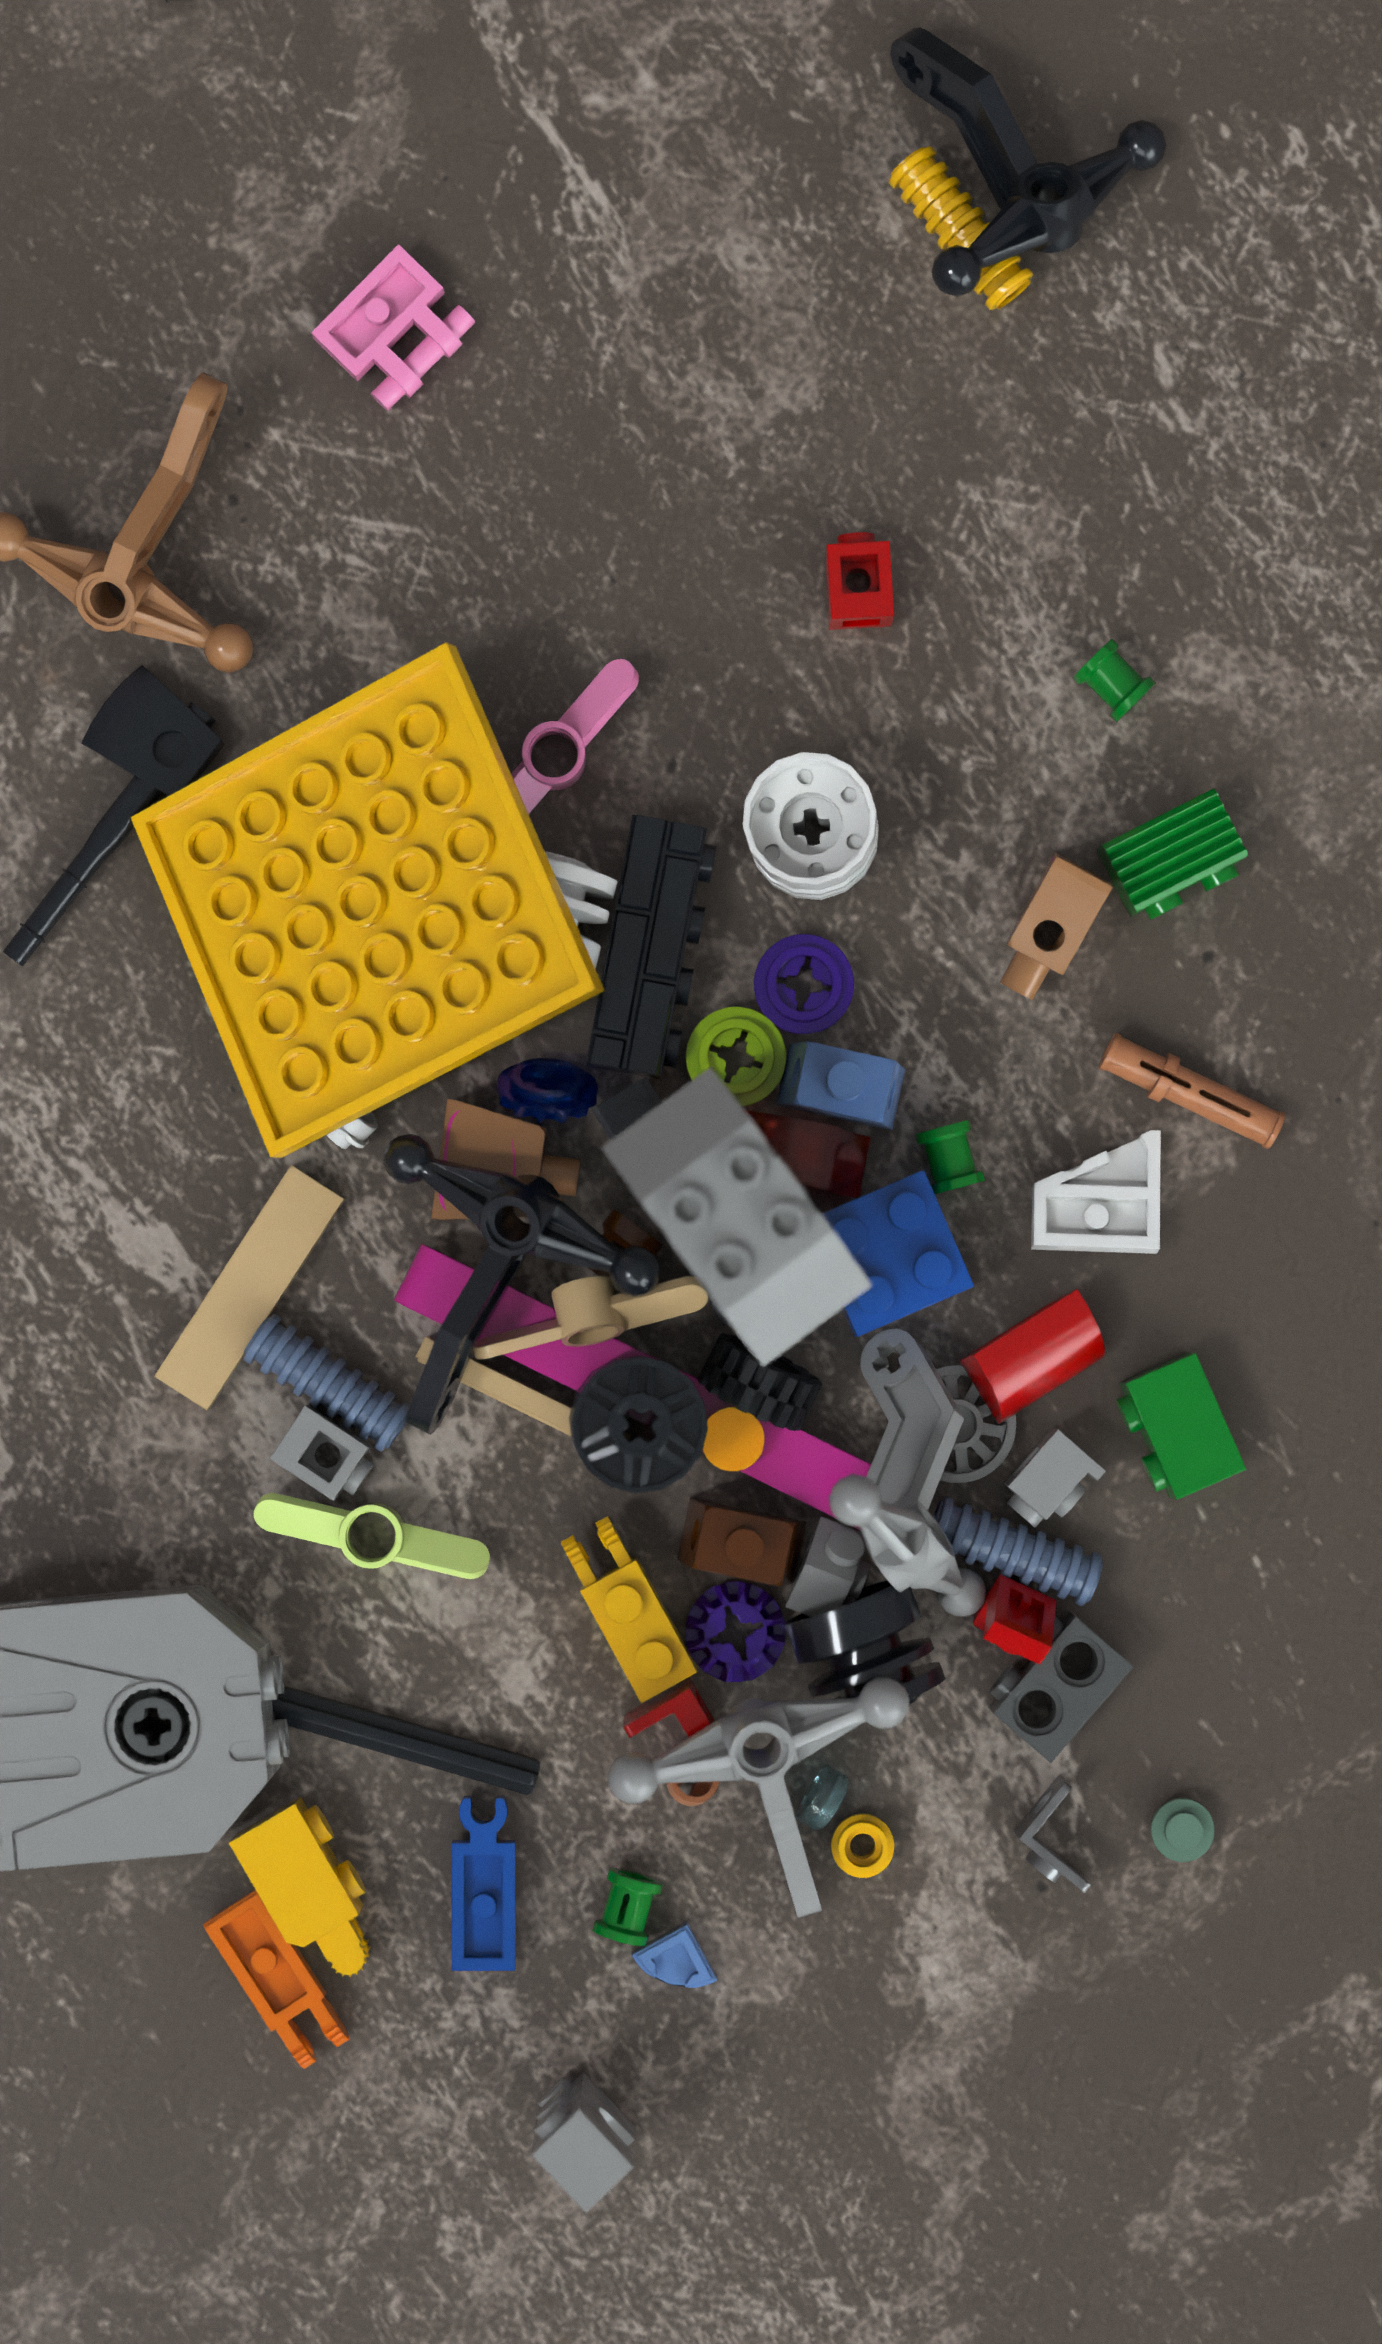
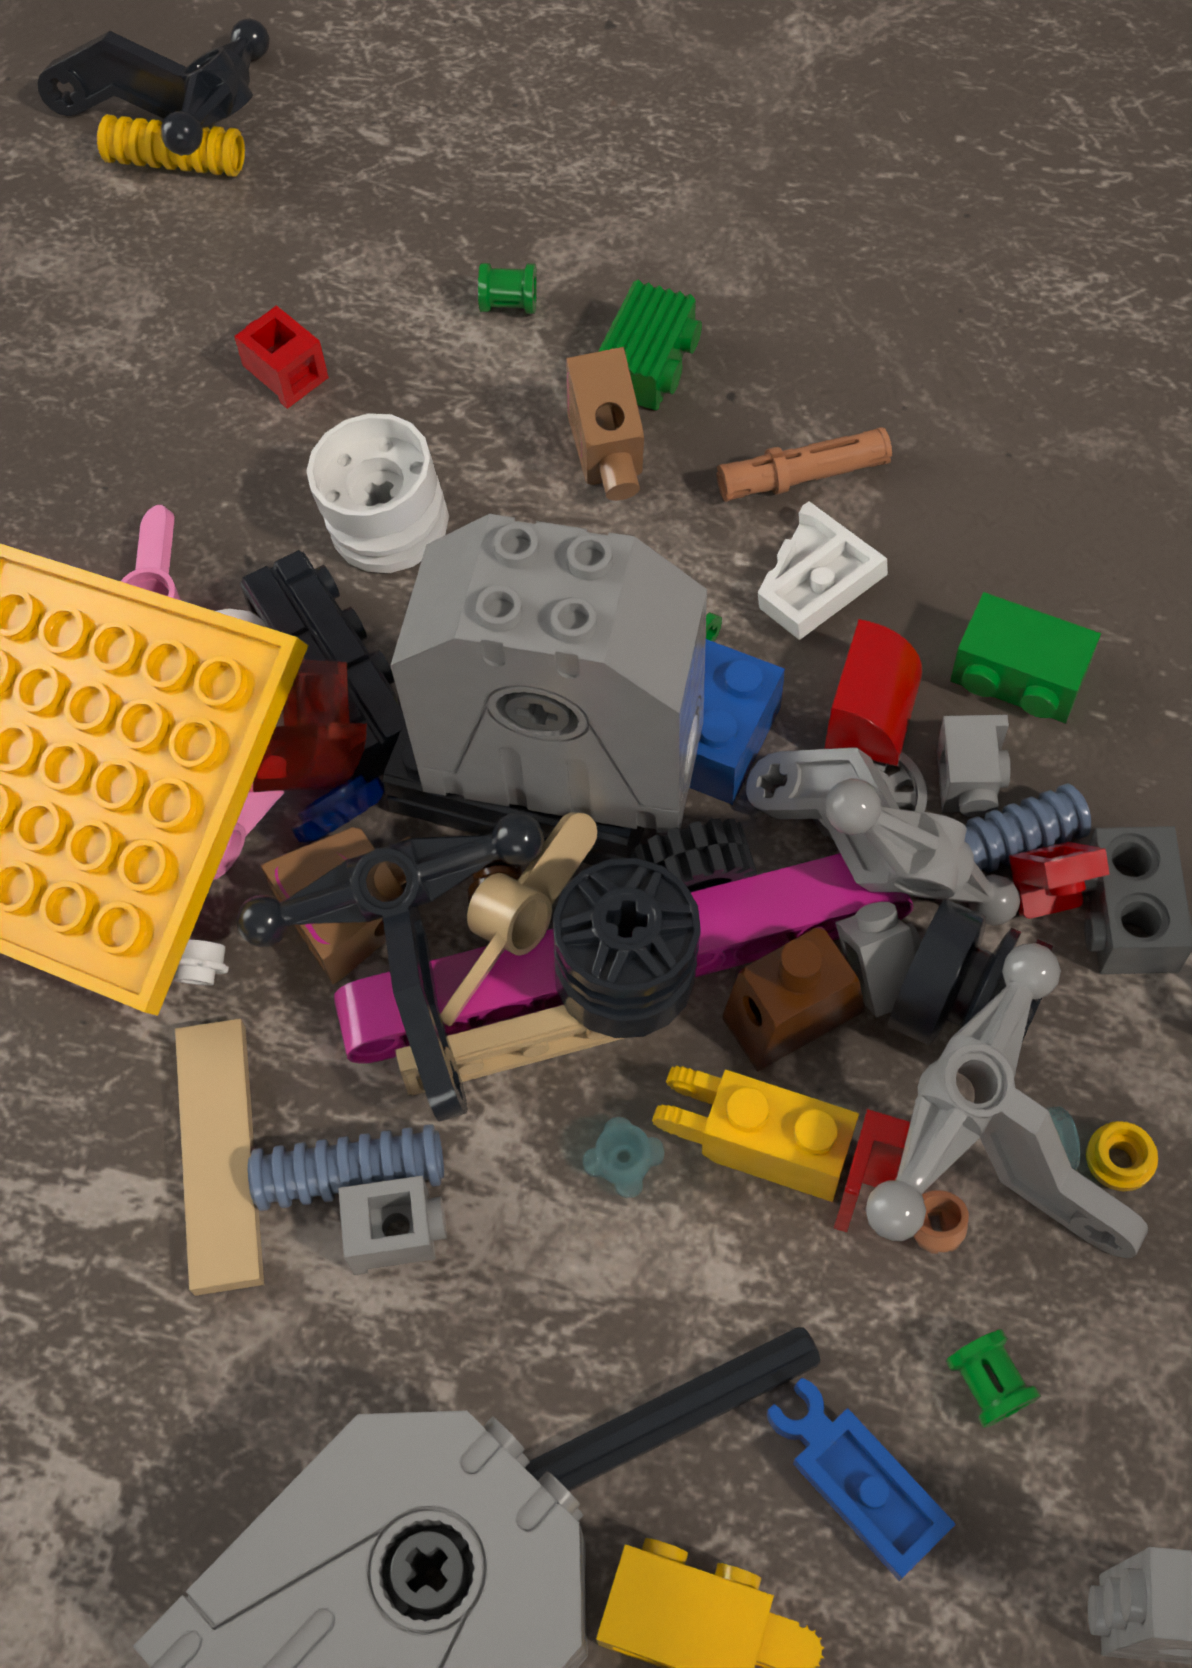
camera: 30 degrees left, 25 degrees down
(412, 1543) = (448, 1278): yellowish green piece -> none
(516, 1557) = (623, 1137): none -> clear light blue plate
(577, 1037) = (317, 742): none -> clear red brick
(676, 1959) = (1075, 1391): medium blue tile -> none
(733, 1439) = (720, 915): light orange tile -> none
(750, 1605) = (845, 1052): dark purple gear -> none

